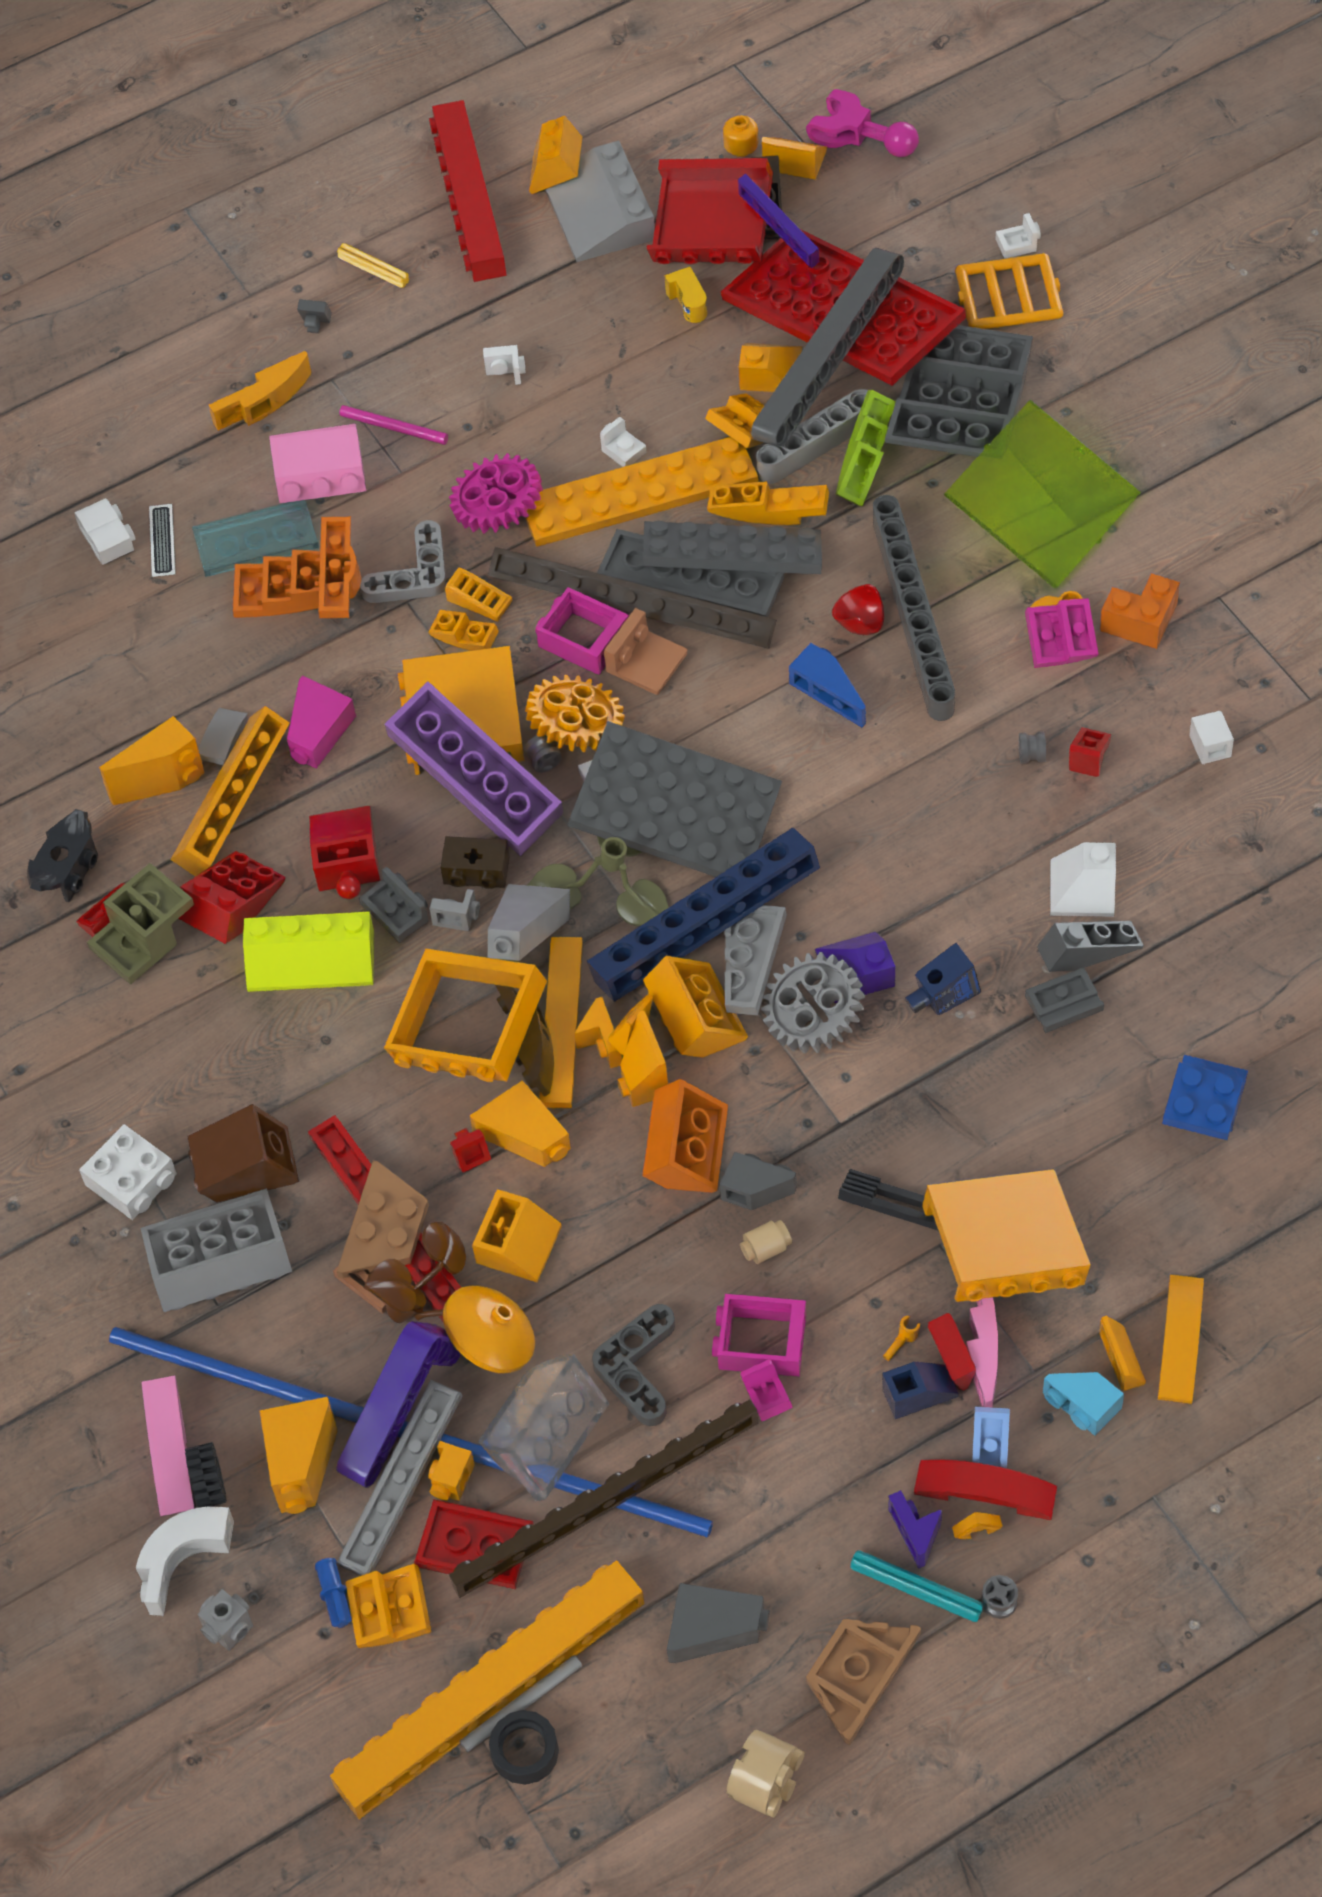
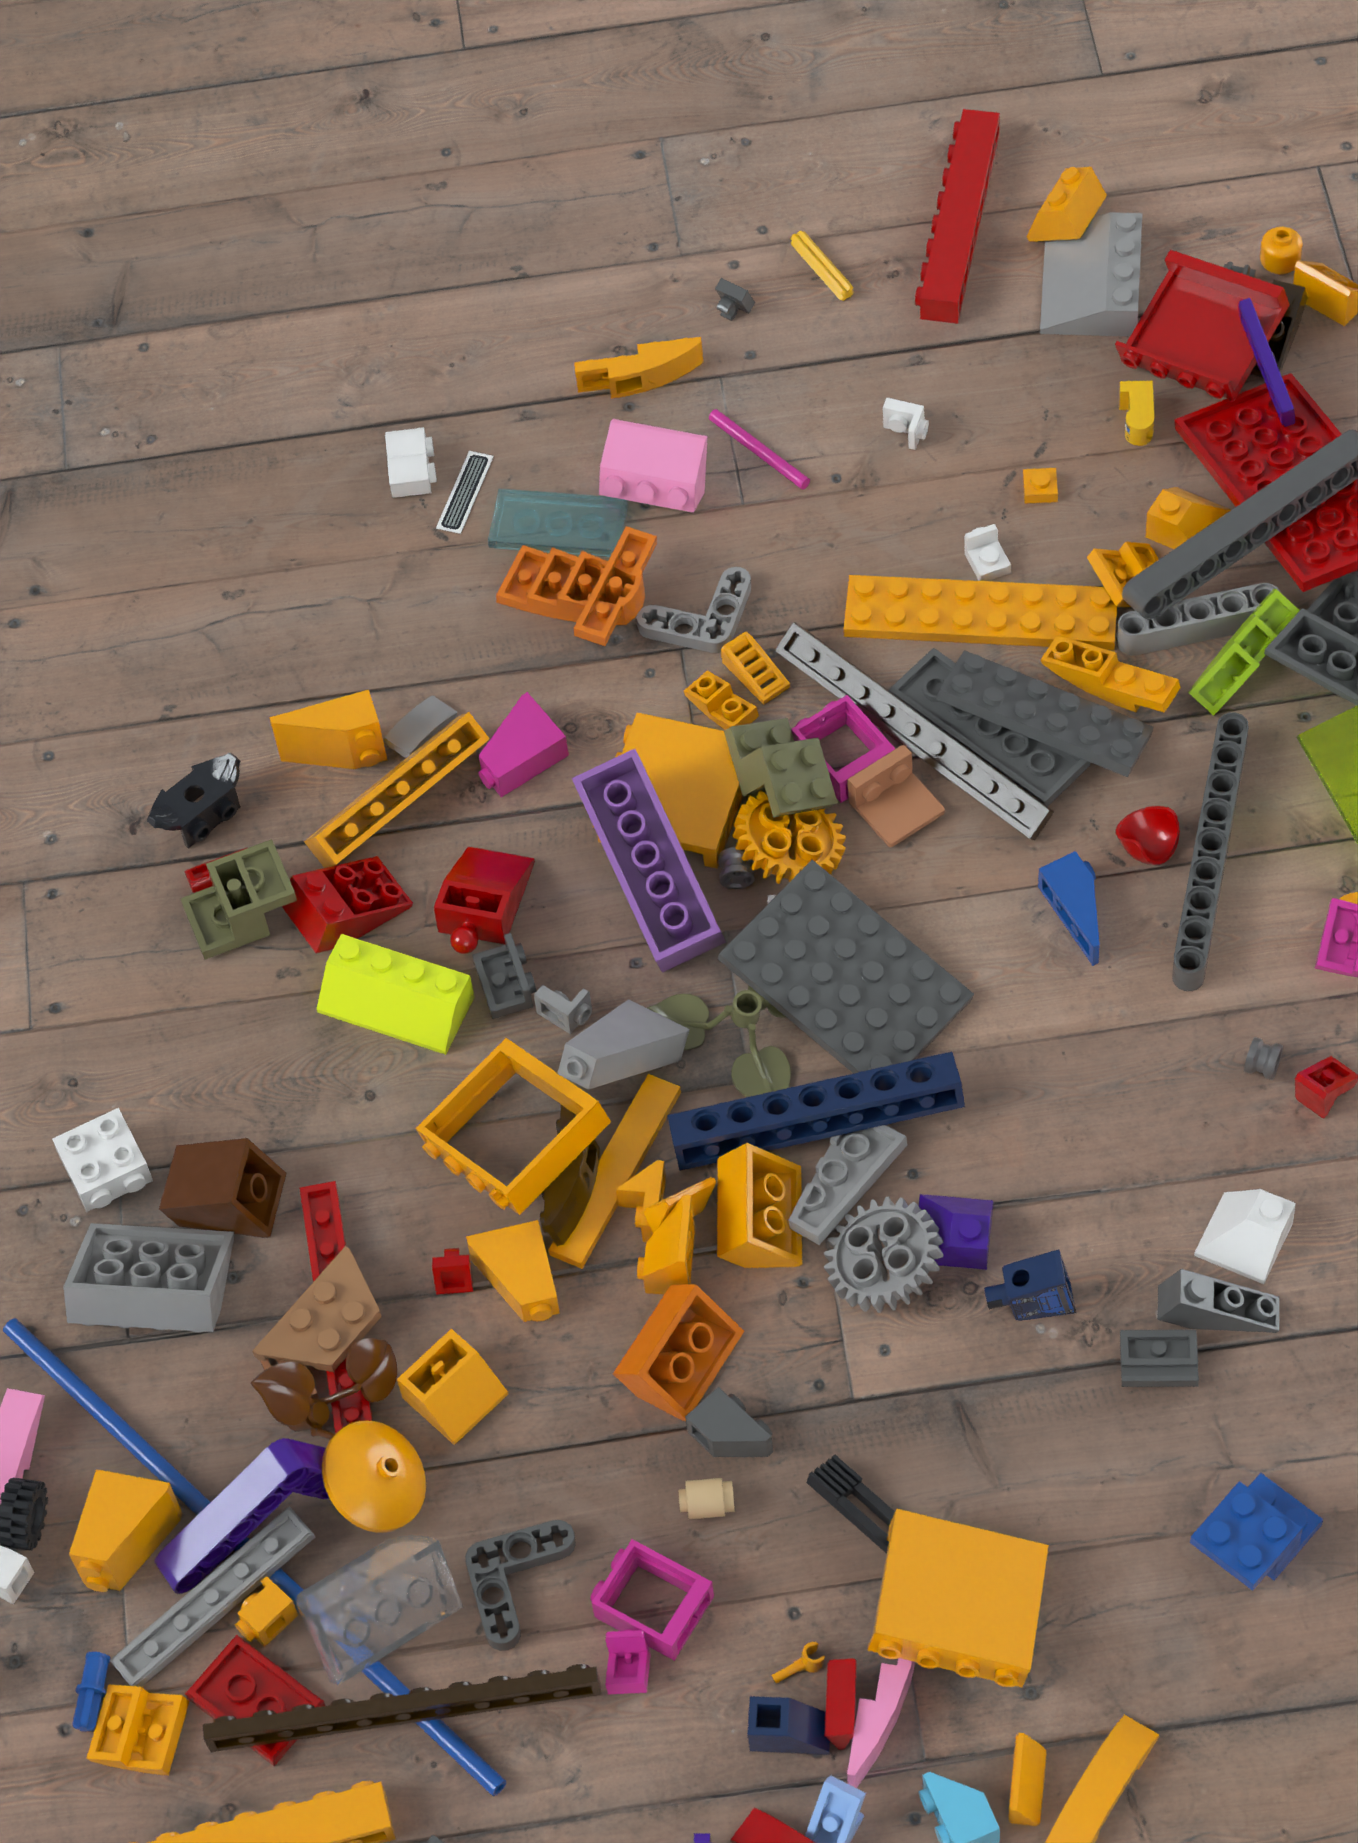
camera: 25 degrees right, 0 degrees up
(475, 862) = (608, 961): dark brown brick -> none
(496, 493) = (840, 548): dark pink gear -> none
(554, 658) = (785, 769): none -> olive bracket
(637, 377) = (1040, 485): none -> light orange plate

